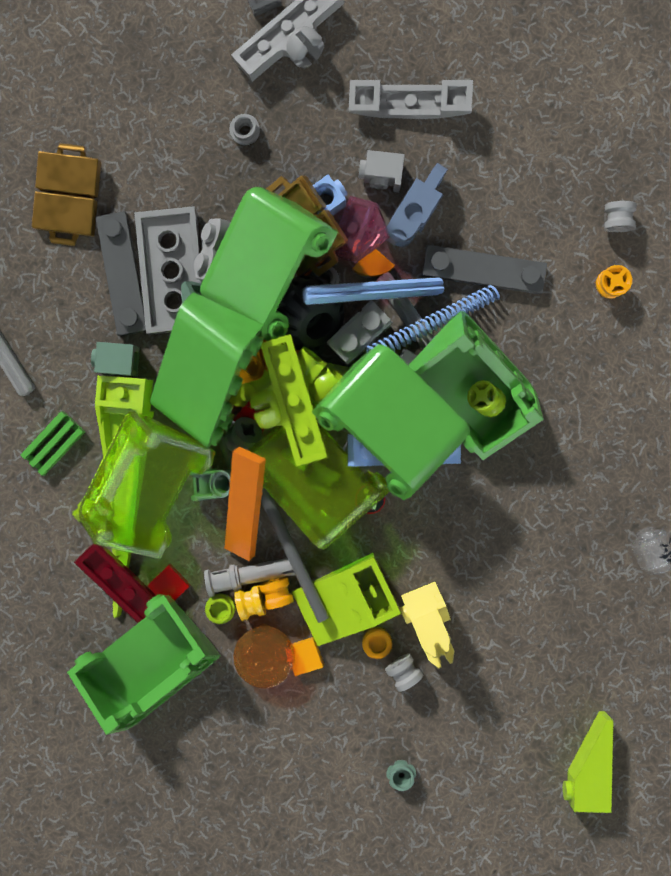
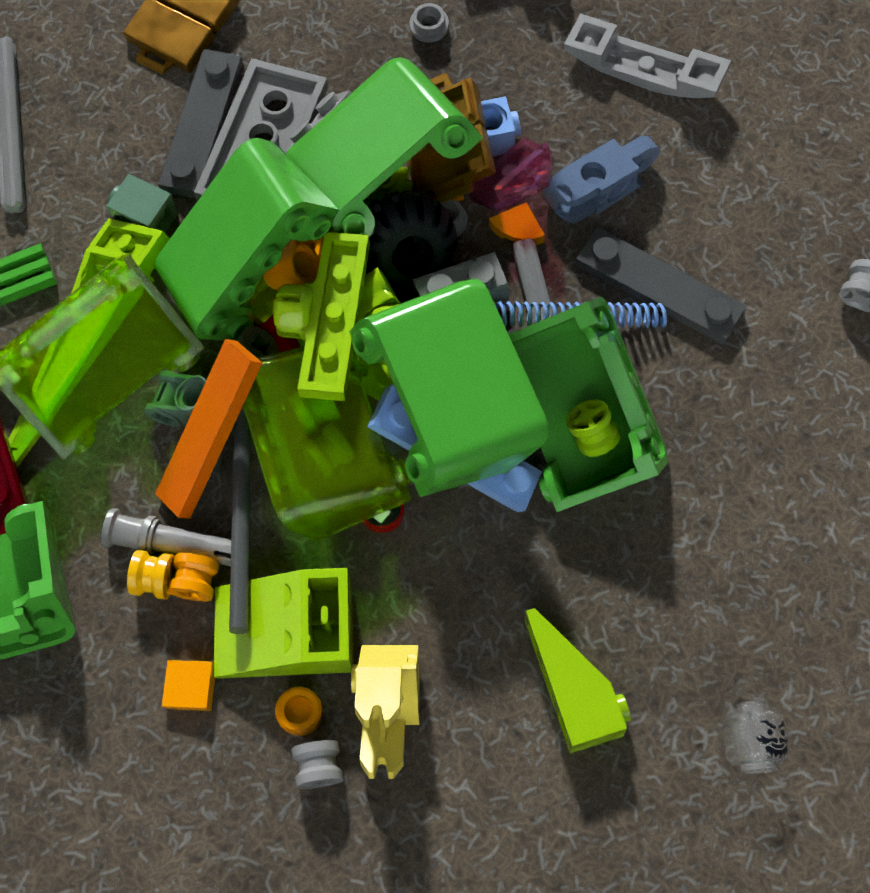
camera: 25 degrees right, 20 degrees down
(169, 583) = (63, 508): red tile -> none
(220, 608) = (107, 570): lime plate -> none
(264, 656) = (132, 656): clear orange tile -> none
(372, 290) = (501, 240): light blue axle -> none
(382, 169) = (577, 121): light grey brick -> none
(544, 569) = (579, 691): none -> lime slope
(618, 276) = (830, 351): light orange wheel -> none

